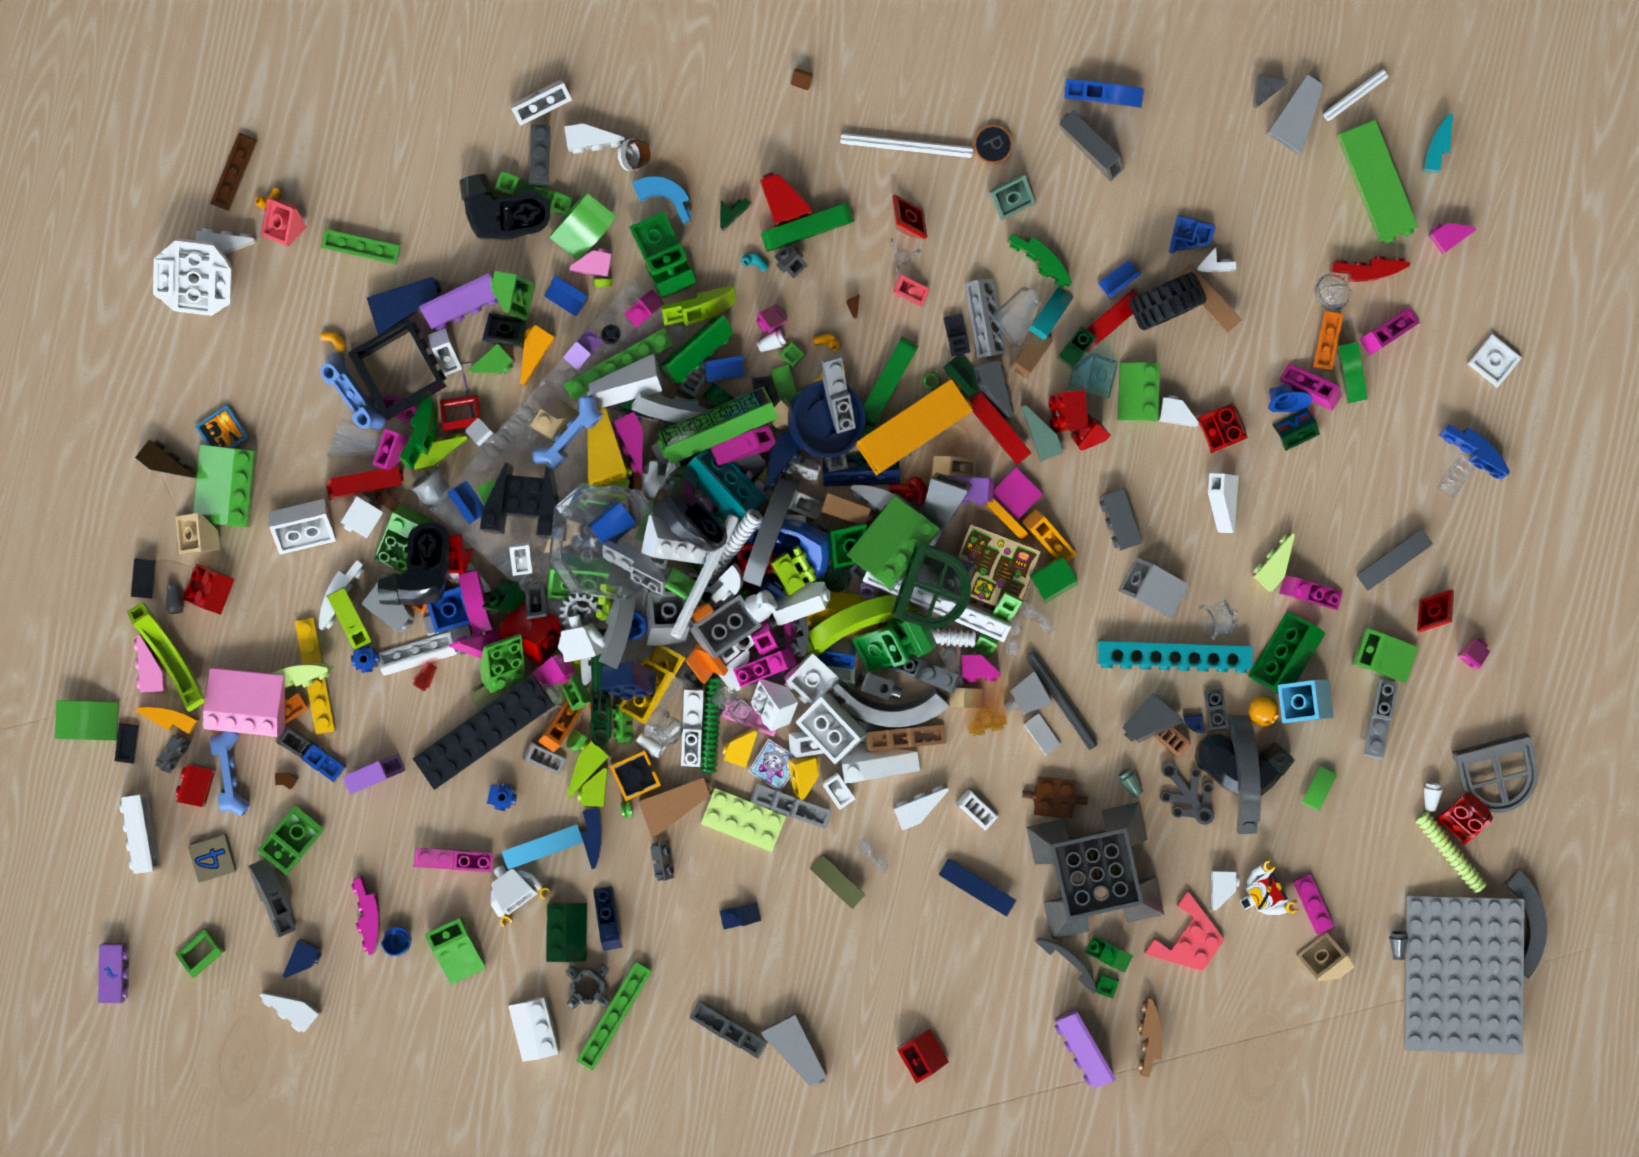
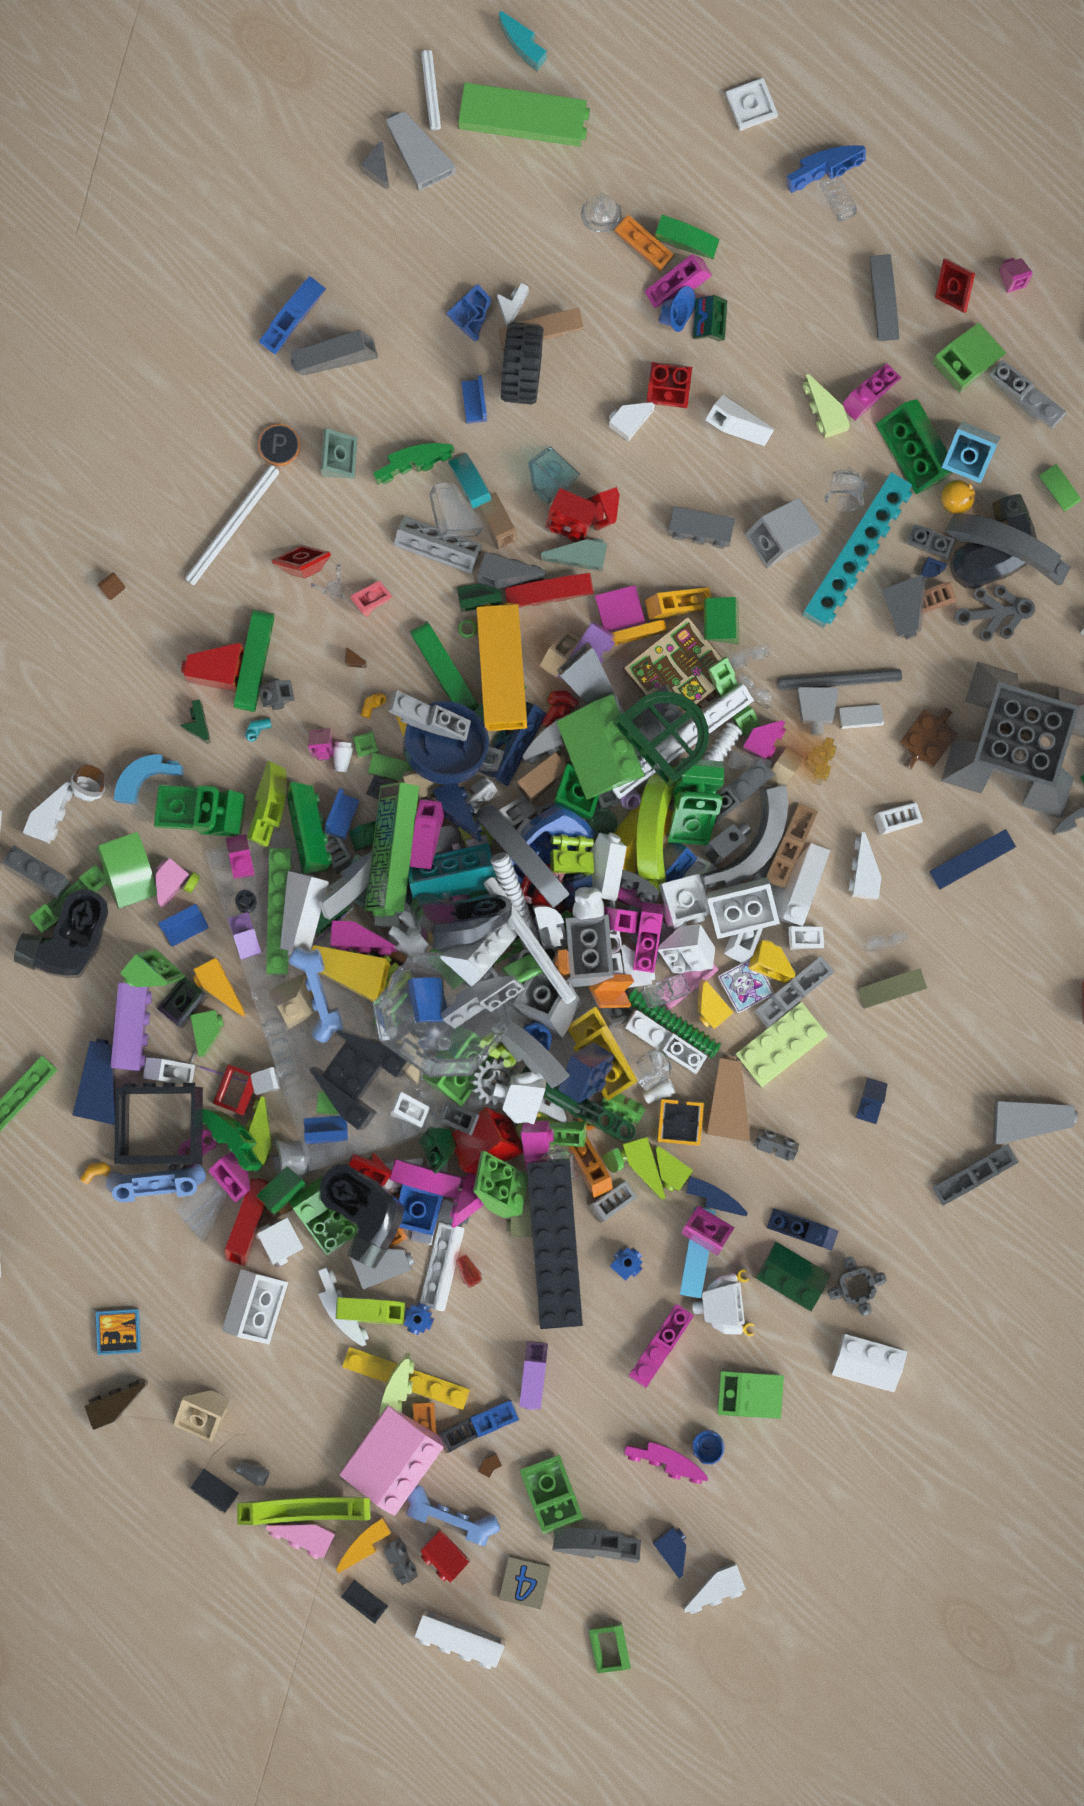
camera: 60 degrees left, 5 degrees down
(86, 720) = (319, 1627): bright green slope -> none
(112, 973) = (581, 1746): medium lavender brick -> none
(208, 589) = (262, 1433): red slope -> none
(225, 485) = (171, 1357): bright green slope -> none
(401, 494) = (281, 1190): none -> green slope
(563, 845) = (707, 1230): none -> dark pink slope
(614, 1015) = (900, 1277): bright green plate -> none
(626, 809) = (708, 1150): bright green bush -> none
(956, 334) = (437, 580): black slope -> none
(1076, 347) = (515, 475): dark green slope -> none
(1111, 319) = (508, 434): red slope -> none
(1130, 782) = (952, 659): sand green cone -> none
(1138, 392) = (590, 442): bright green slope -> none
(1377, 269) = (603, 162): red slope -> none
(1389, 331) = (668, 183): dark pink slope -> none
(1449, 235) = (611, 78): dark pink slope -> none

